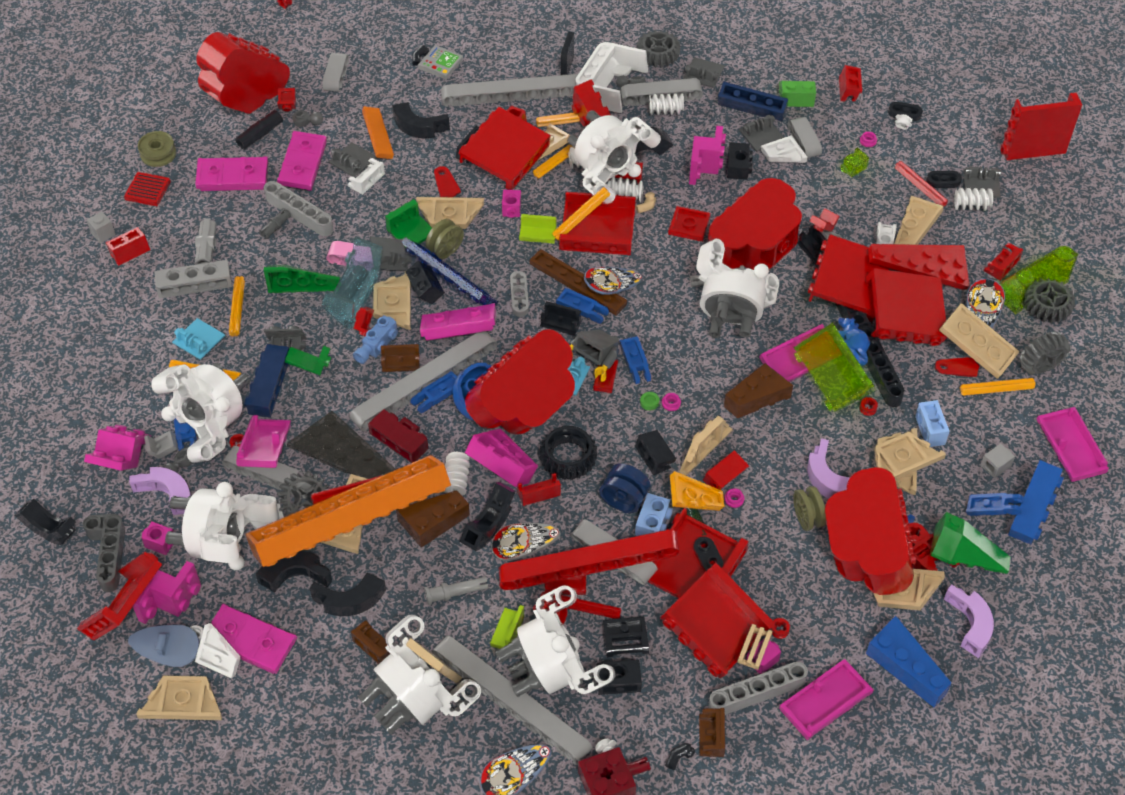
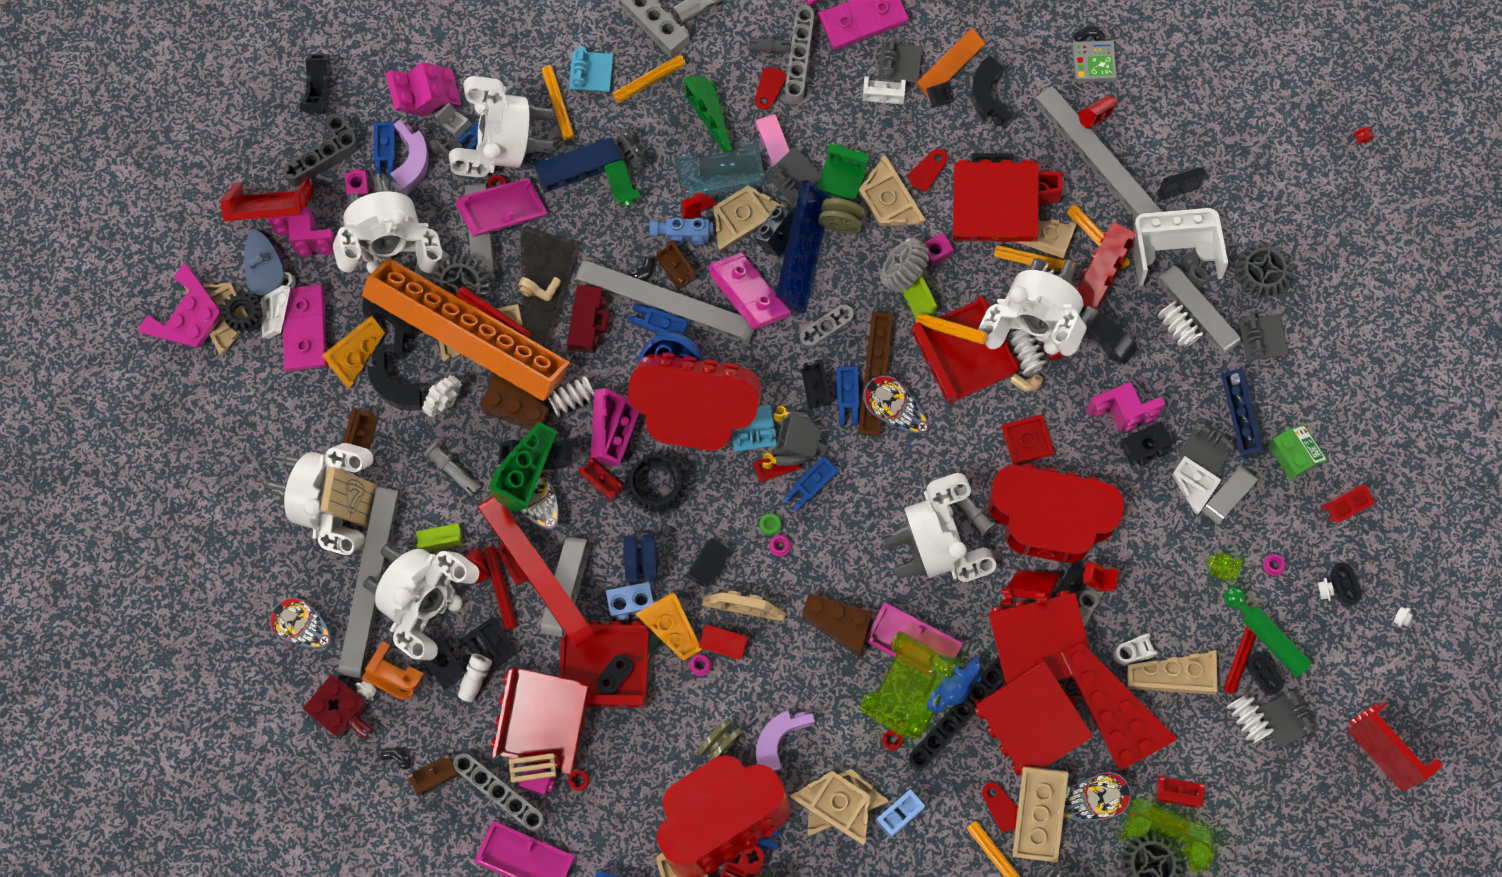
camera: 60 degrees right, 20 degrees up
(141, 504) = (384, 146): none -> blue hinge
(172, 721) = (192, 318): none -> dark pink wing
(194, 665) = (250, 320): none -> black tyre
(297, 611) = (353, 350): none -> light orange wing
(306, 239) = (769, 87): none -> red piece
(345, 455) = (530, 288): none -> tan plate
(386, 378) = (644, 272): none -> black arm
(390, 560) = (441, 396): none -> white gear
(396, 148) = (939, 95): none -> black tile
(480, 71) = (1097, 112): none -> red brick
(500, 528) = (520, 471): none -> green wedge
(511, 219) = (904, 265): none -> light grey gear
(606, 720) = (389, 677): none -> orange piece
(649, 659) = (473, 679): none -> white axle
(805, 262) = (1030, 585): none -> red flag
(917, 159) = (1268, 632): none -> green piece
(946, 94) = (1403, 617): none -> white plate

